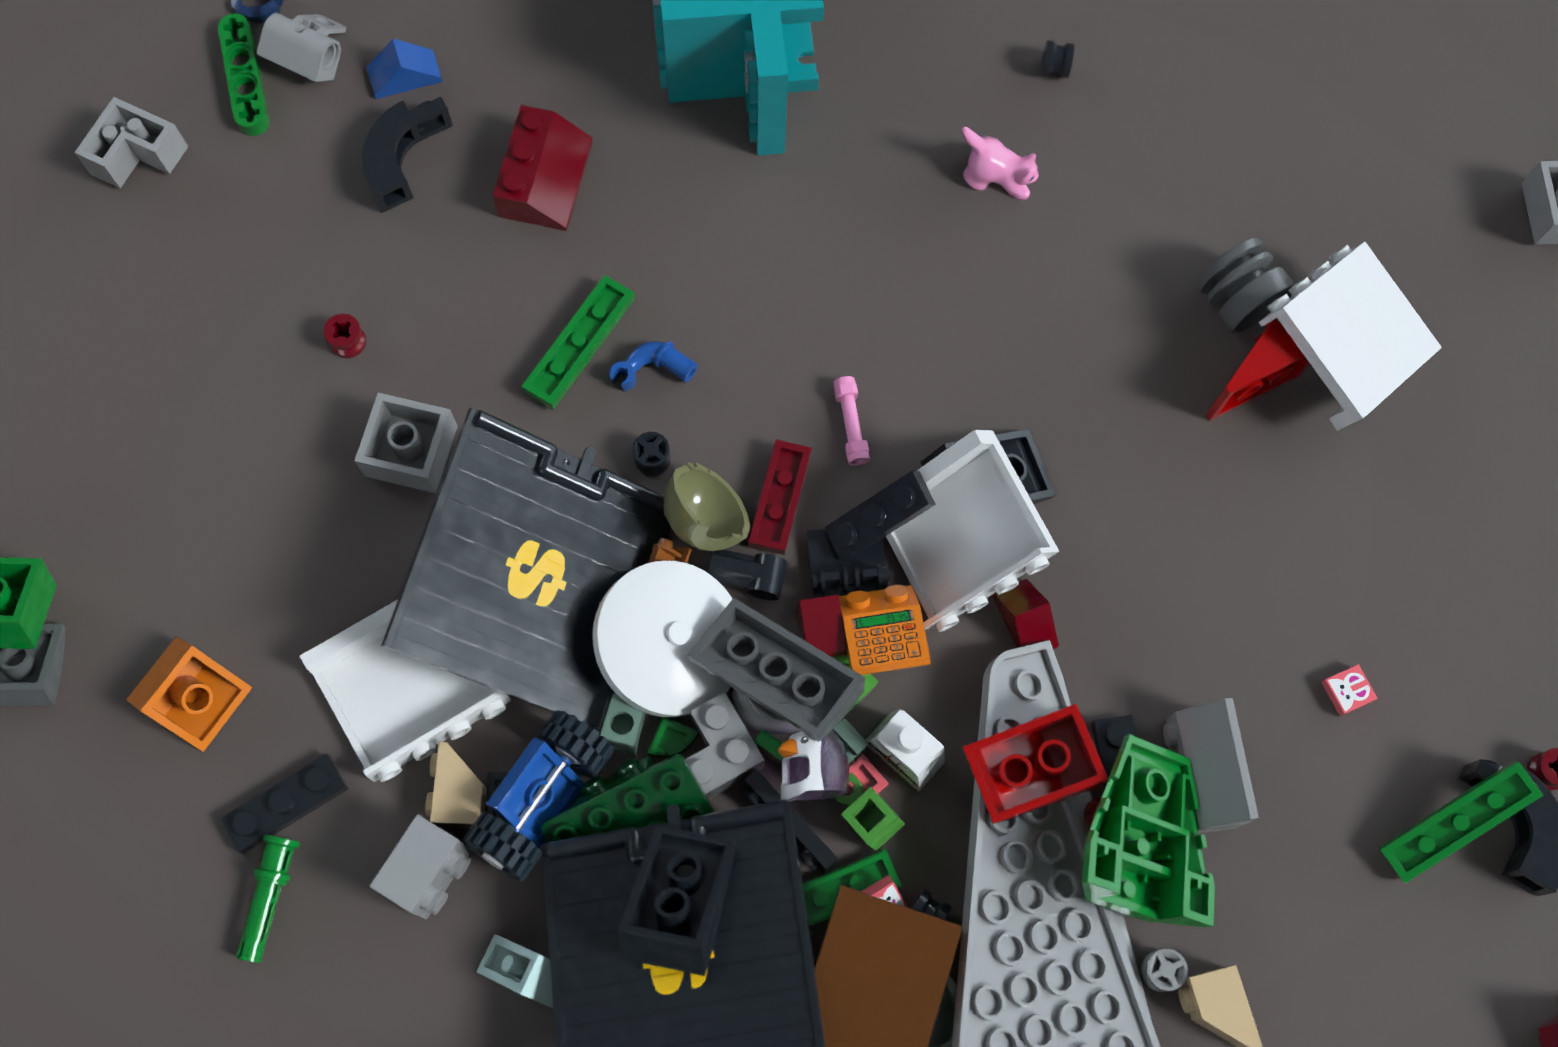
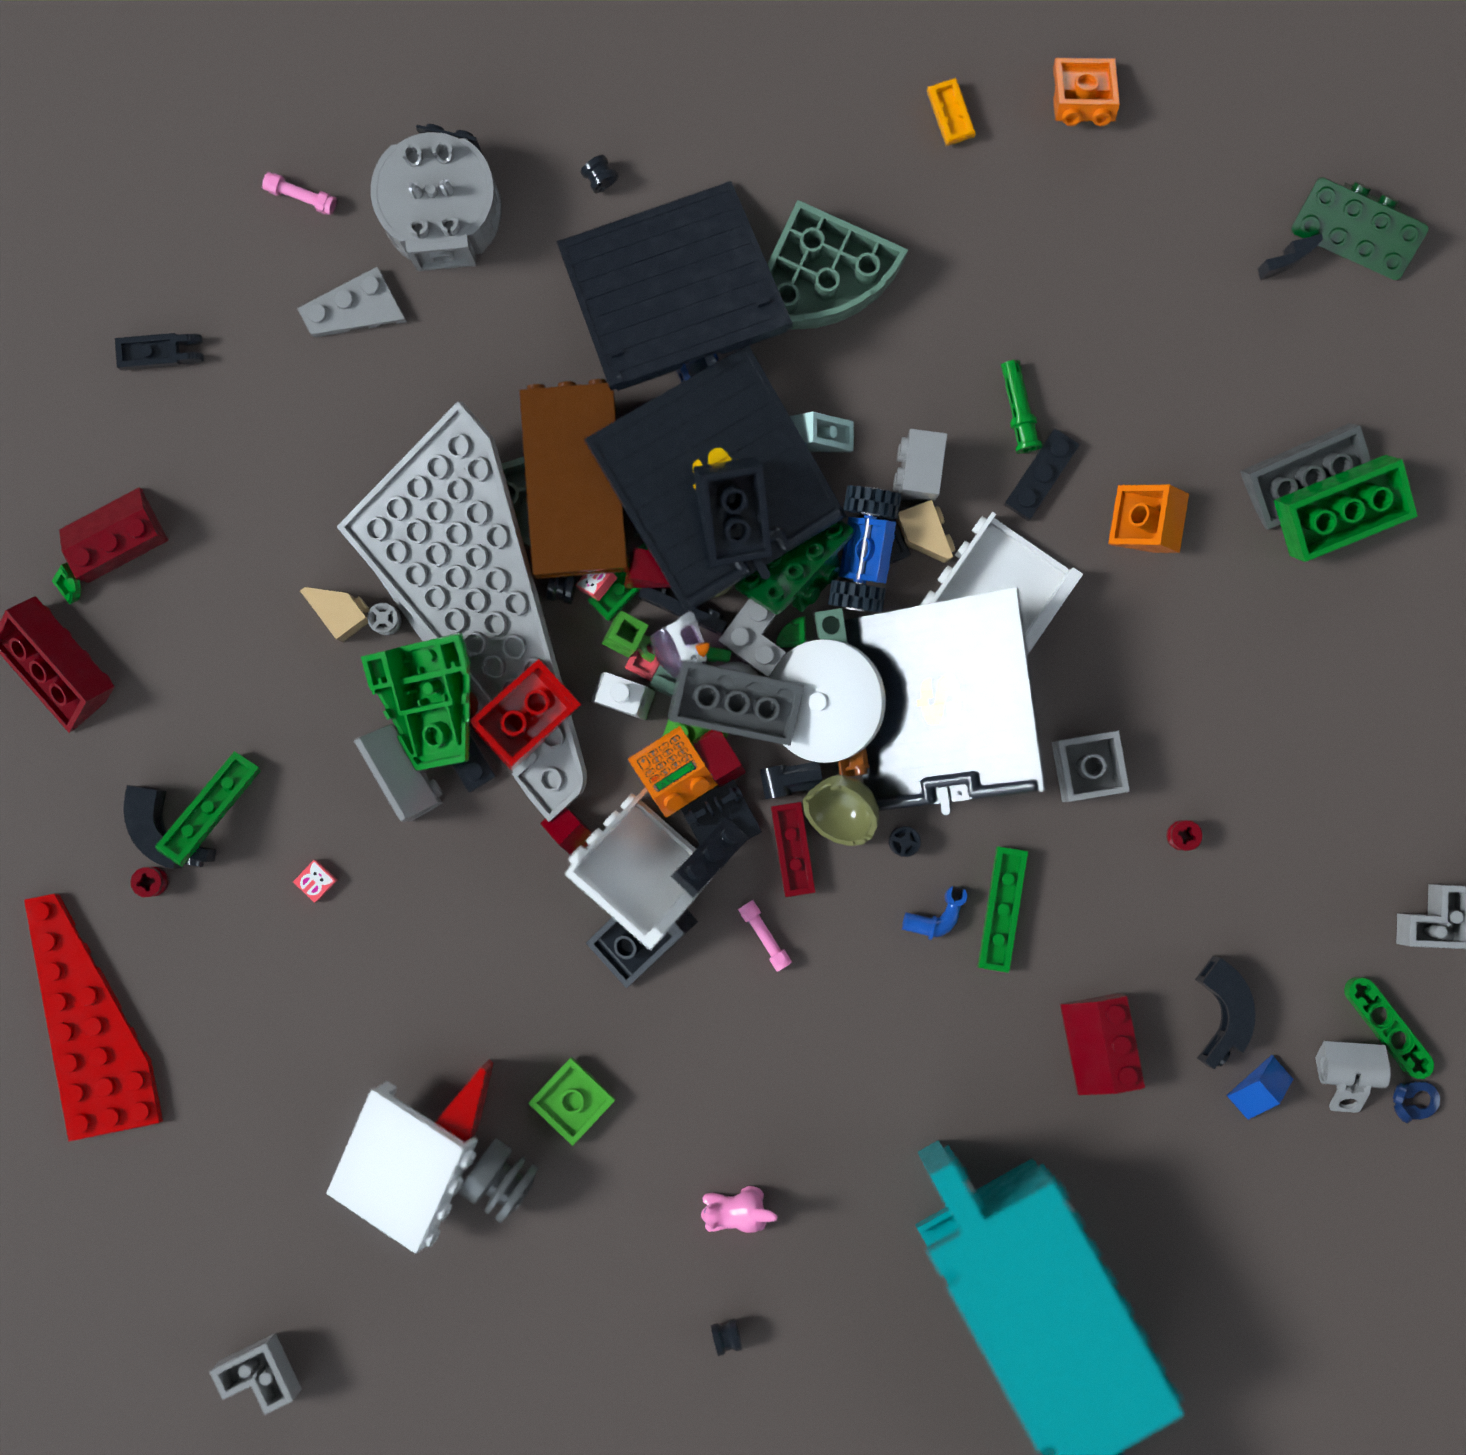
camera: 160 degrees right, 15 degrees up
(820, 881) = (643, 571): none -> dark red slope
(1134, 338) = (572, 1101): none -> bright green plate

